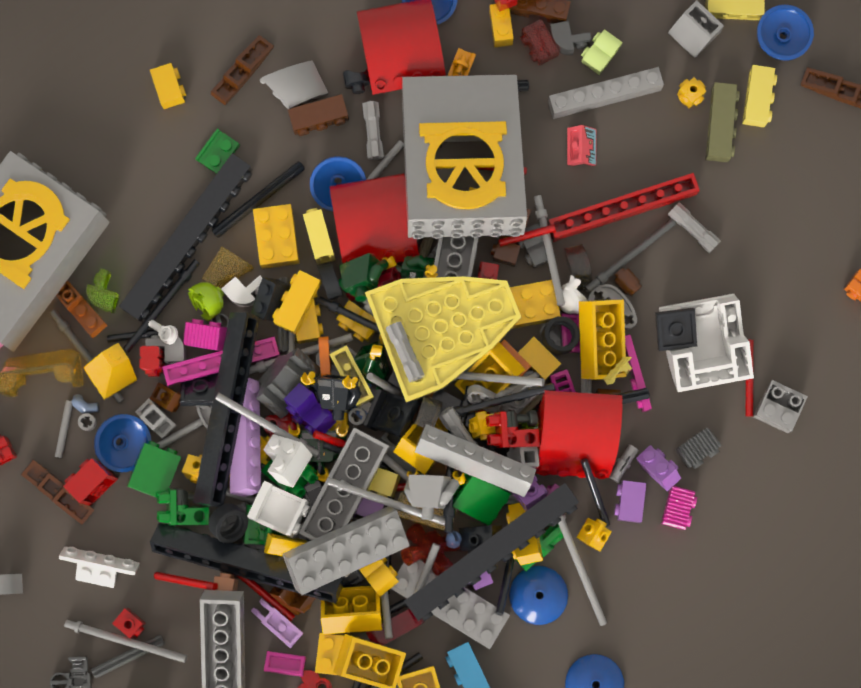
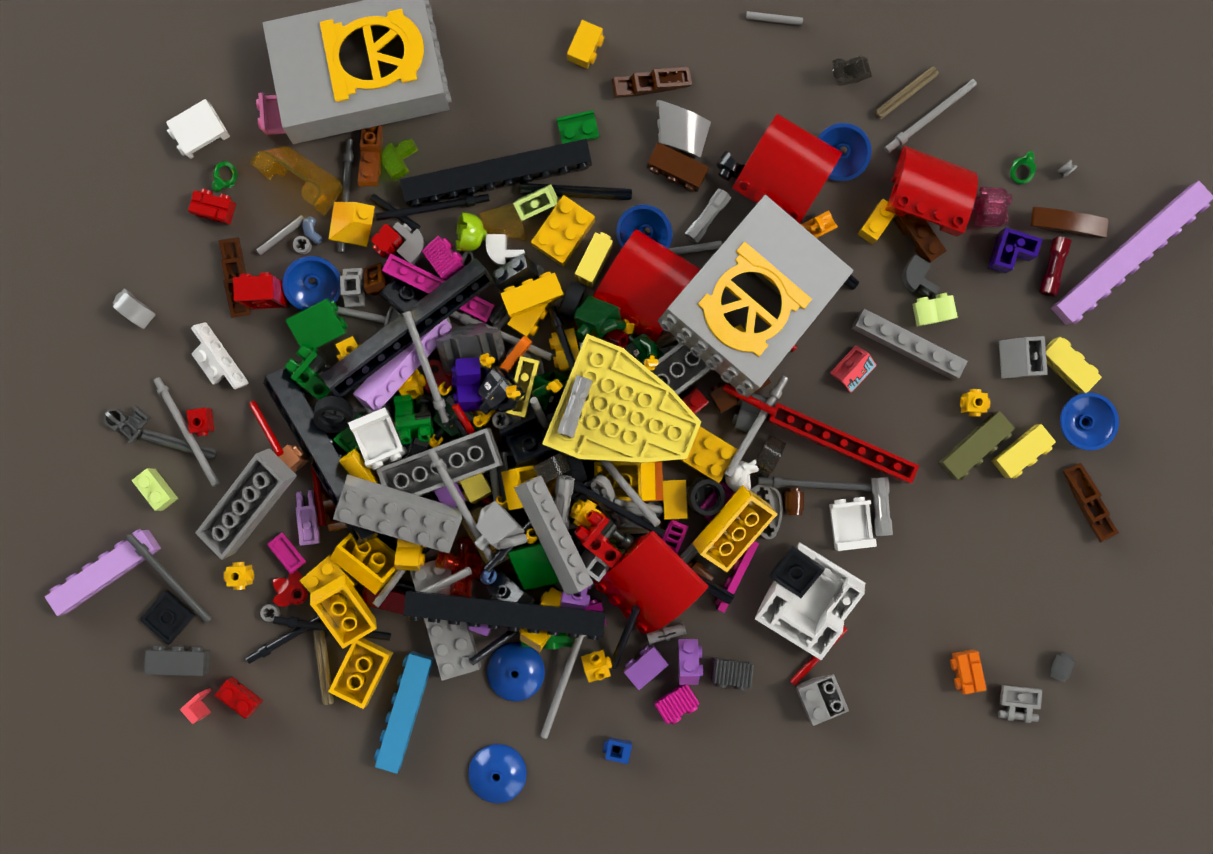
camera: 40 degrees right, 5 degrees up
(167, 334) = (415, 232): white plate -> none
(237, 232) = (536, 202): none -> yellowish green brick
(288, 459) = (418, 408): white brick -> none
(539, 42) = (894, 261): clear red brick -> none
(623, 365) = (731, 562): light yellow piece -> none
(673, 579) = (620, 756): none -> blue brick
(684, 260) = (851, 524): none -> white panel

